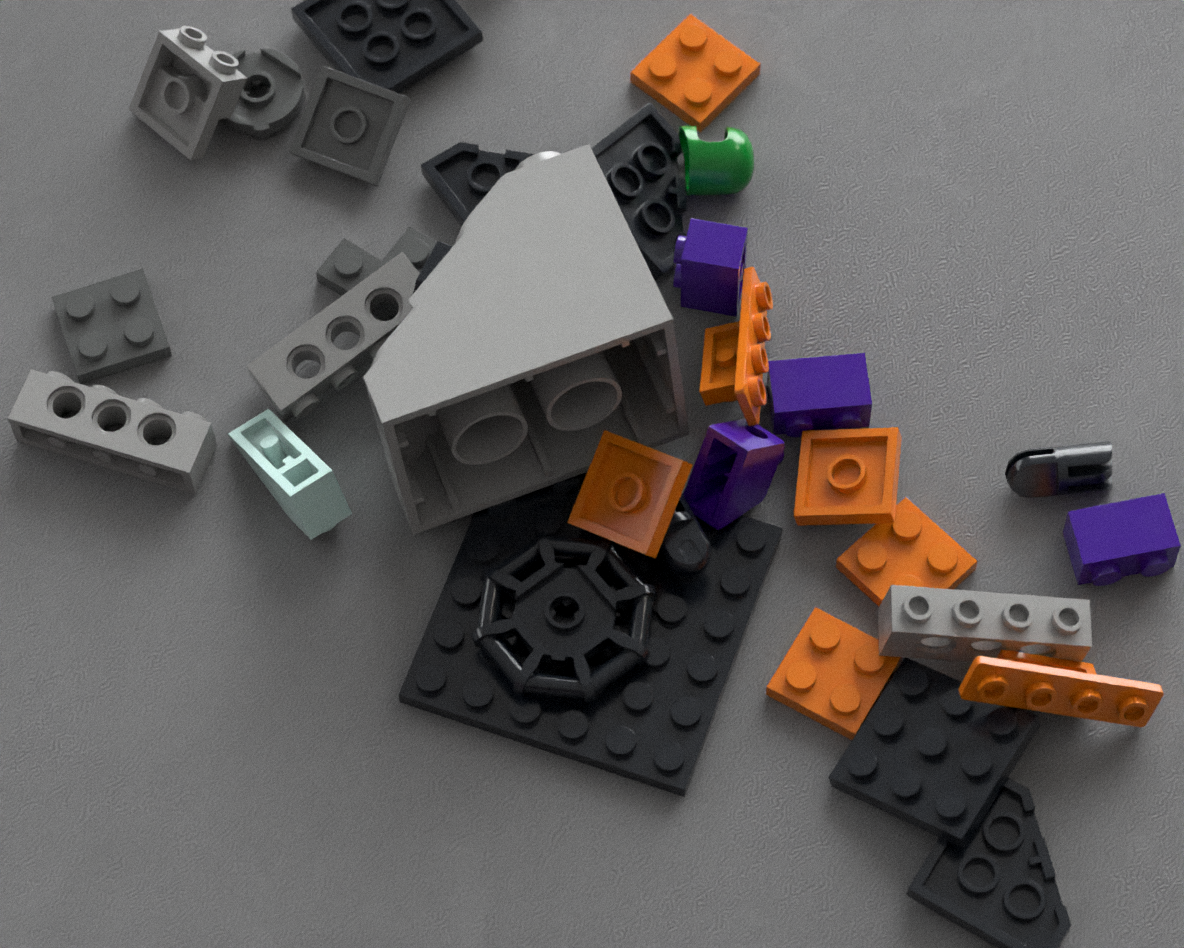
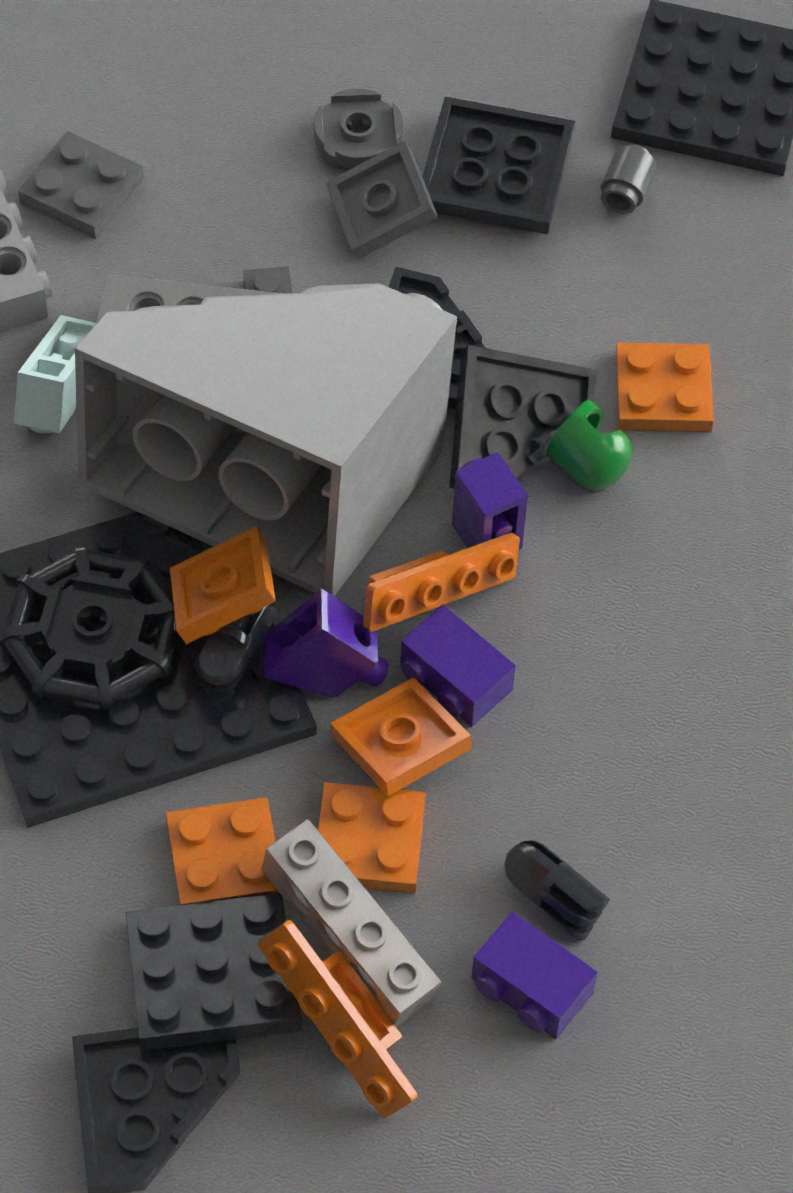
camera: 45 degrees right, 5 degrees down
(187, 89) = (308, 80): light grey plate -> none

